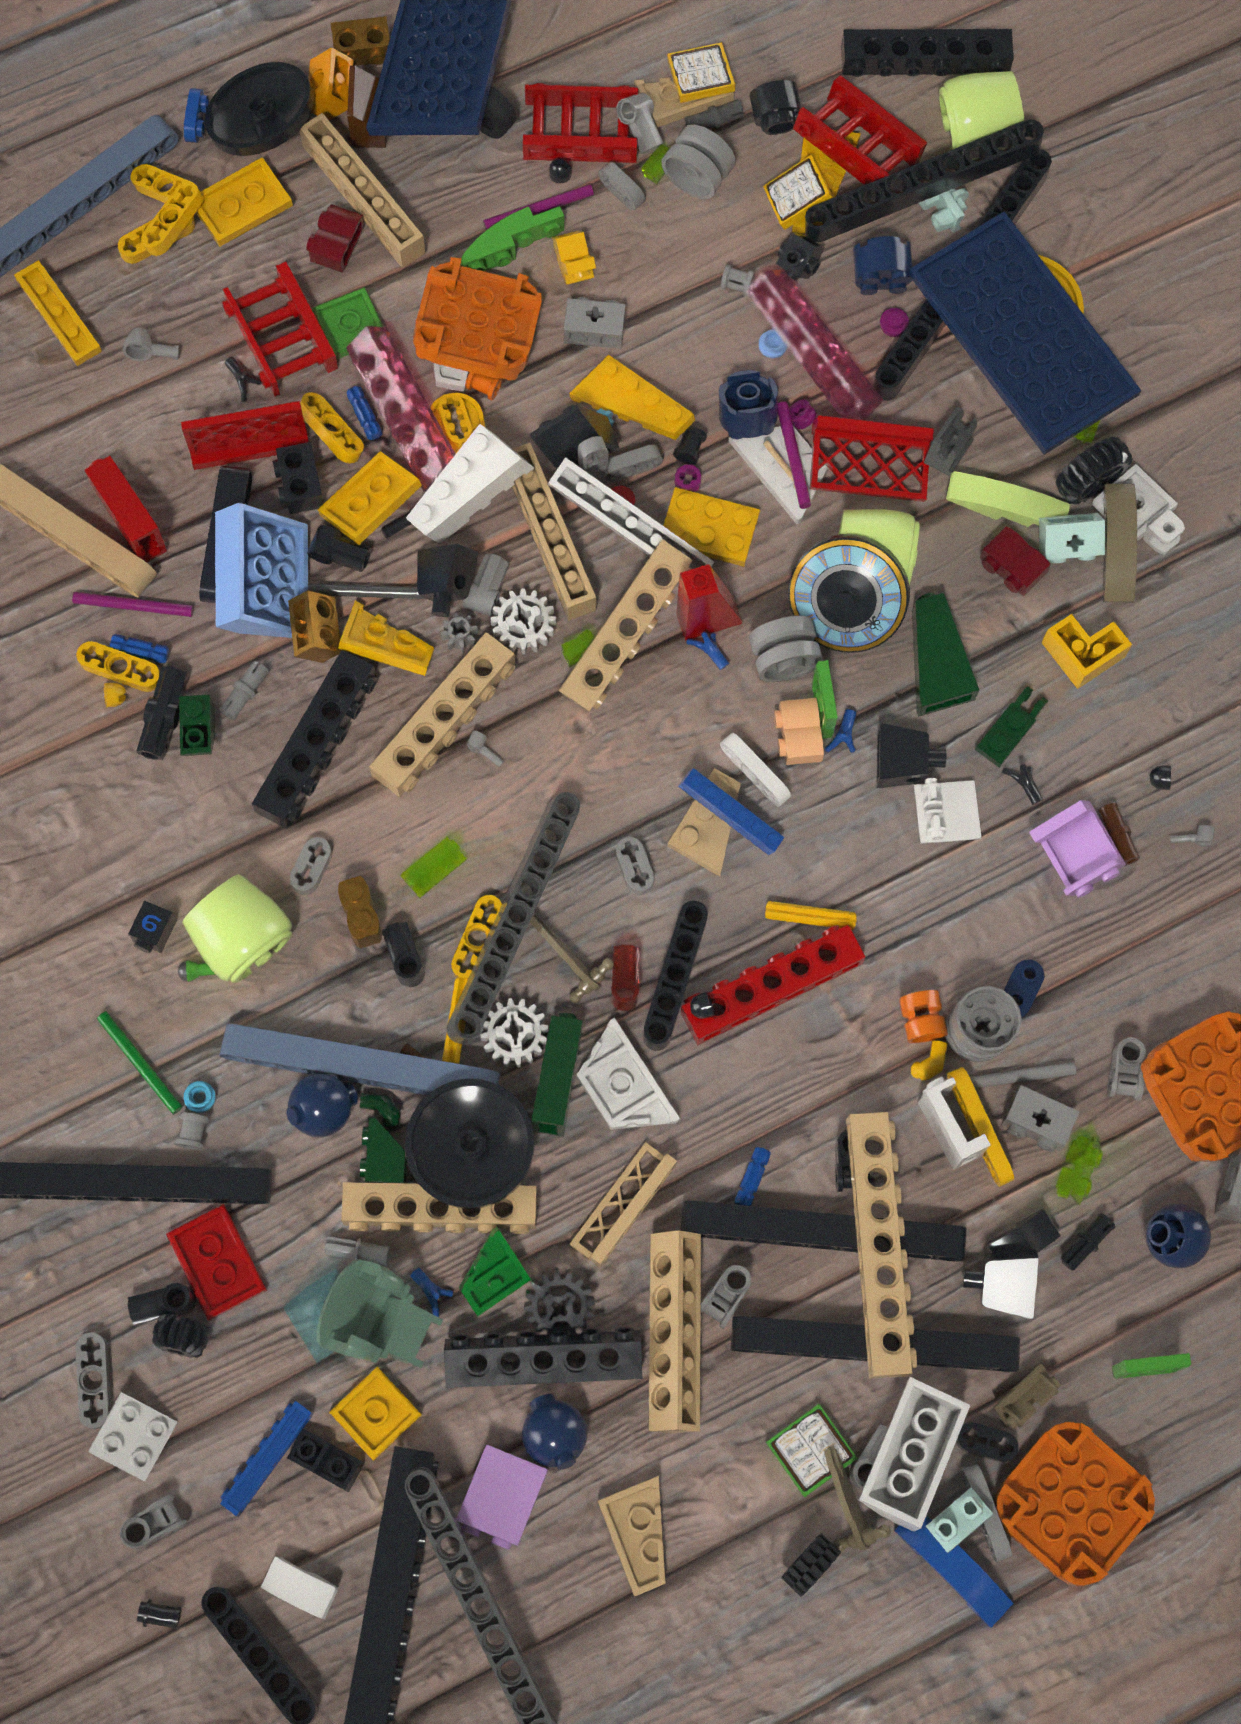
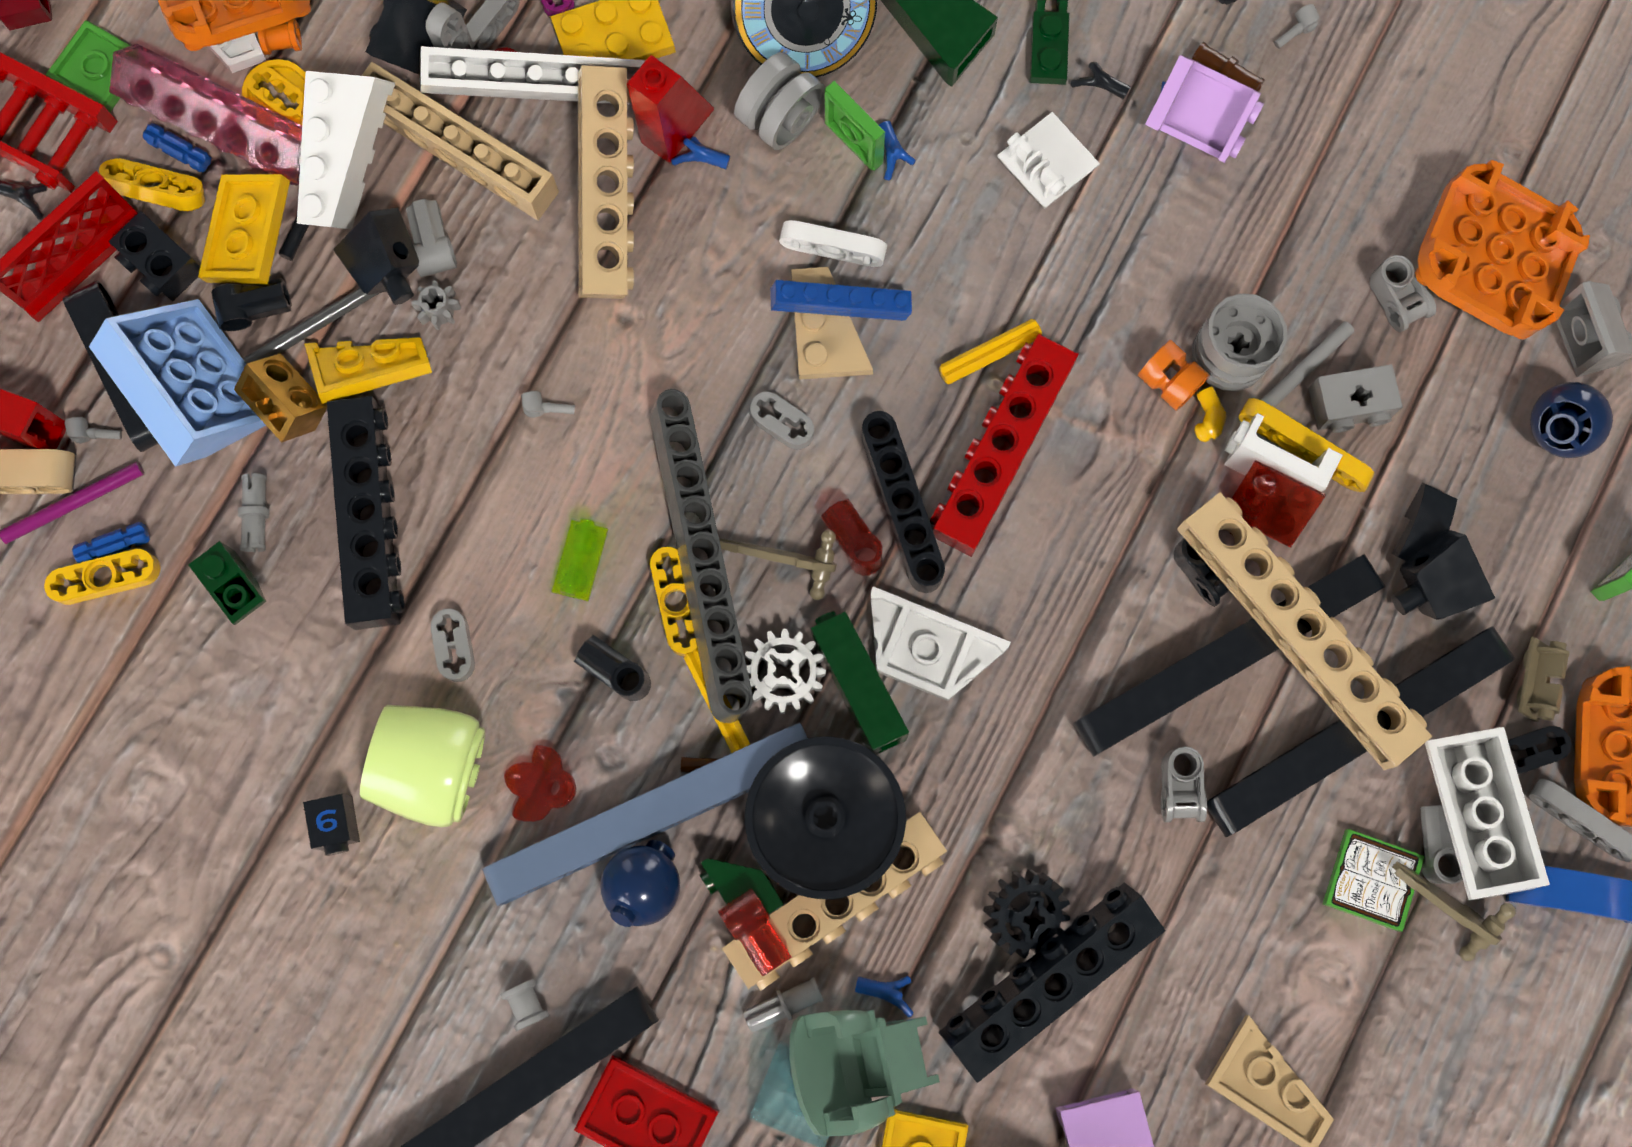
camera: 30 degrees left, 5 degrees up
(114, 694) = (118, 609): yellow hinge -> none
(139, 1062) = (418, 971): green bar -> none
(162, 713) = (183, 594): black piece -> none
(169, 561) = (79, 433): none -> light grey hand
(190, 970) = (404, 839): bright green piece -> none
(195, 1088) = (494, 962): medium azure plate -> none
(299, 993) = (534, 785): none -> clear red plate
(361, 916) = (543, 661): pearl gold brick -> none
(372, 1175) = (751, 925): none -> clear red piece
(385, 1107) = (706, 838): dark green arm -> none
(484, 654) = (480, 307): tan brick -> none
(493, 1274) = (939, 932): green wing -> none
(533, 615) = (493, 265): white gear -> none
(554, 1432) = (1116, 1048): dark blue brick -> none
(575, 648) = (566, 243): clear neon green piece -> none
(632, 1211) = (1030, 767): tan fence -> none
(675, 1332) = (1180, 868): tan brick -> none
(702, 1006) = (956, 514): black hinge -> none
(752, 1176) = (1121, 650): blue axle -> none
(800, 731) = (850, 176): light nougat brick -> none
(811, 1564) = (1463, 996): black tyre -> none
(905, 756) = (969, 132): black torso -> none
(925, 1149) = (1276, 503): none -> clear red hinge
(959, 1520) = (1572, 847): light aqua hips -> none
(1025, 988) = (1242, 281): dark blue plate -> none
(1078, 1181) = (1430, 436): clear neon green hinge -> none
(1087, 1242) = (1484, 486): black axle -> none

